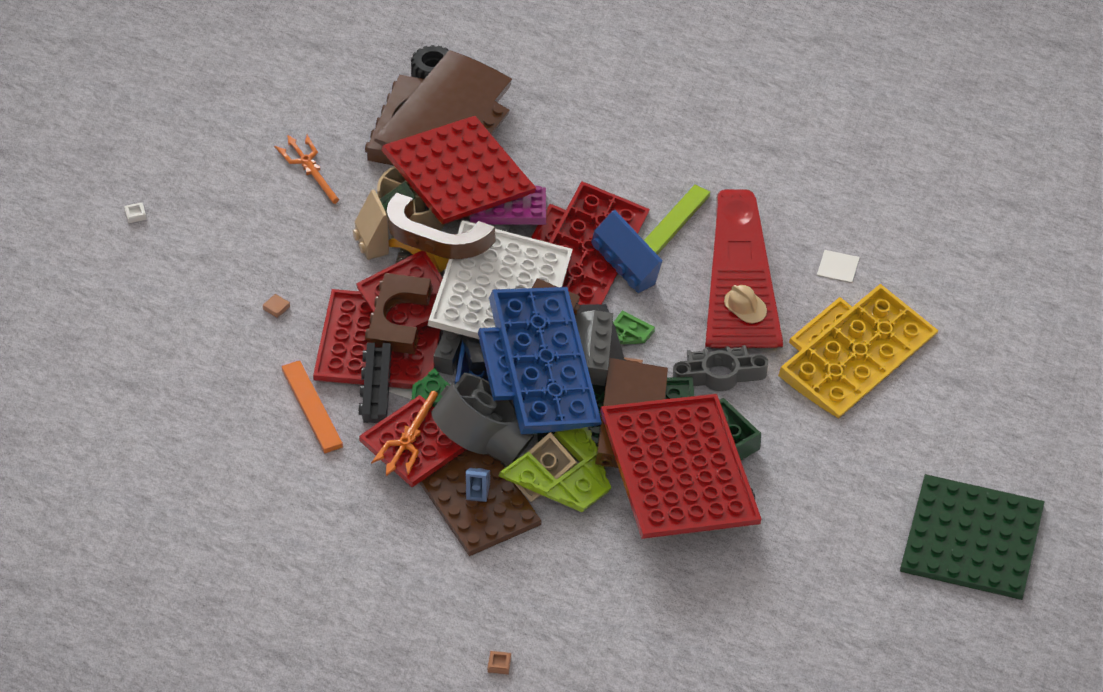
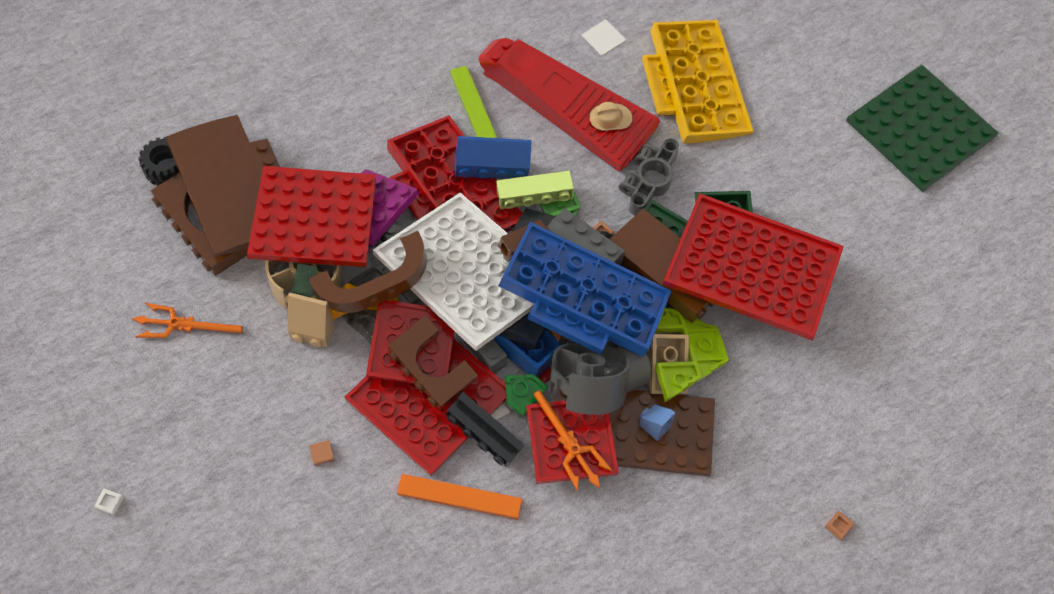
camera: 55 degrees left, 15 degrees up
(625, 297) = (535, 190): none -> yellowish green brick

